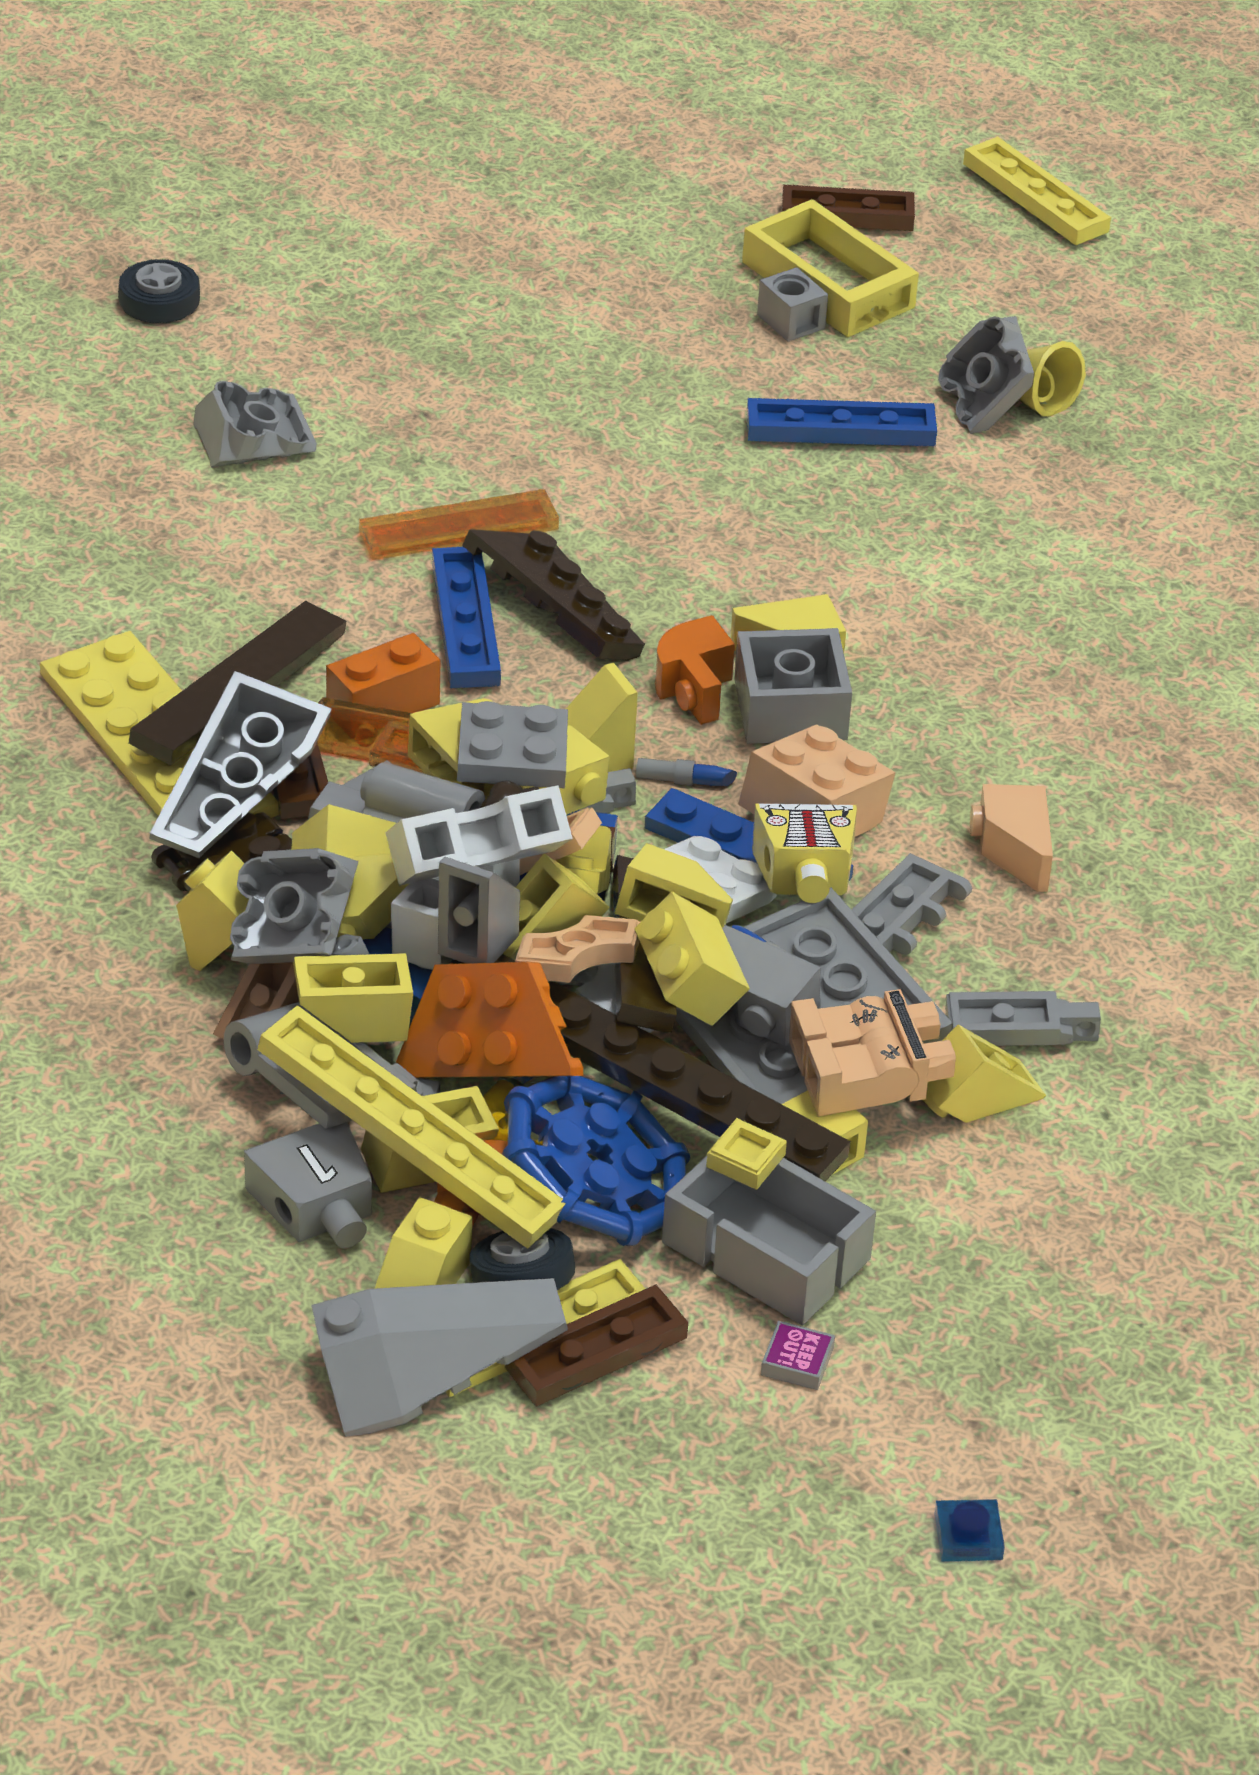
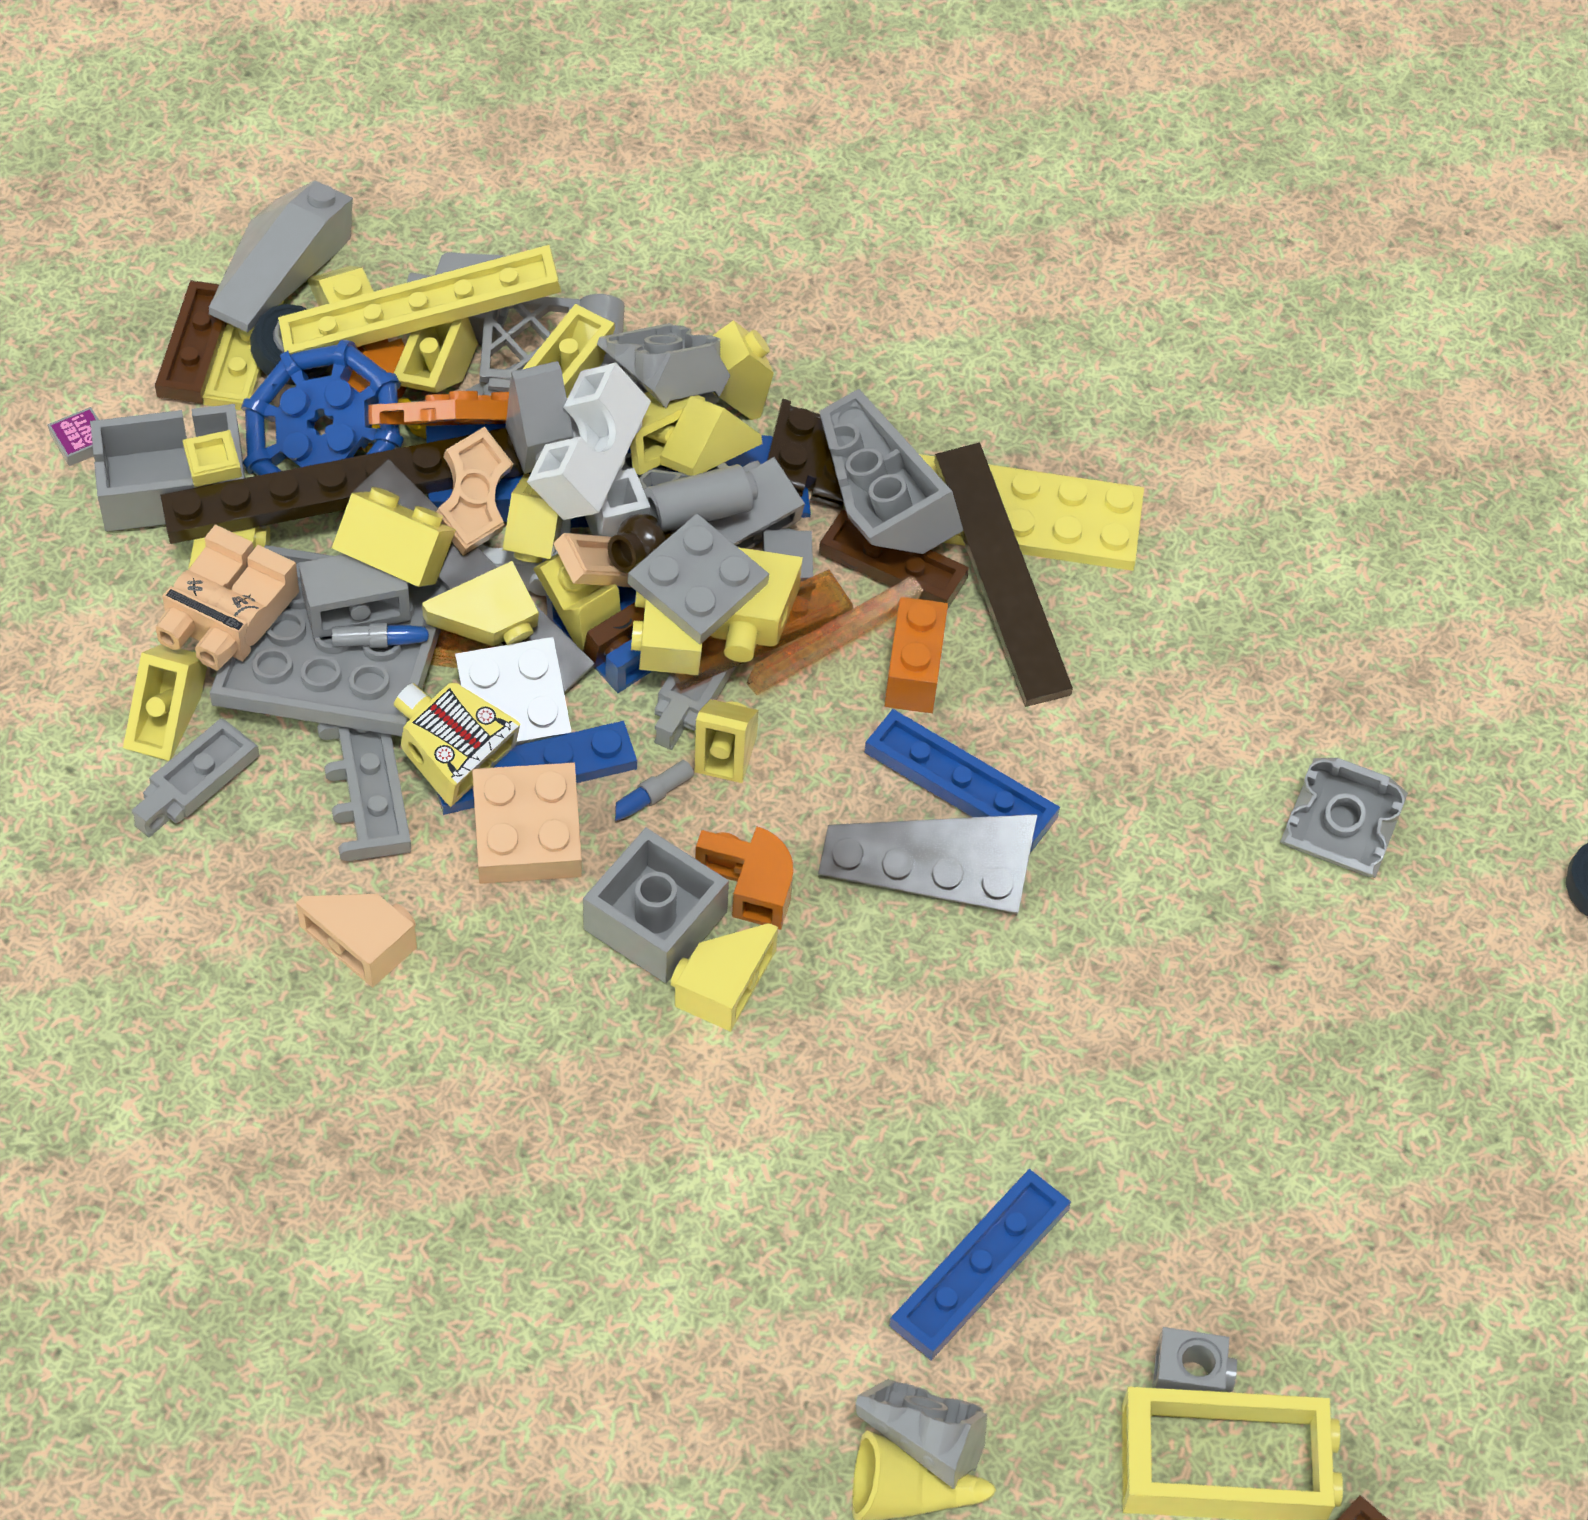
camera: 130 degrees right, 15 degrees up
(449, 524) = (1091, 871): clear orange tile -> none

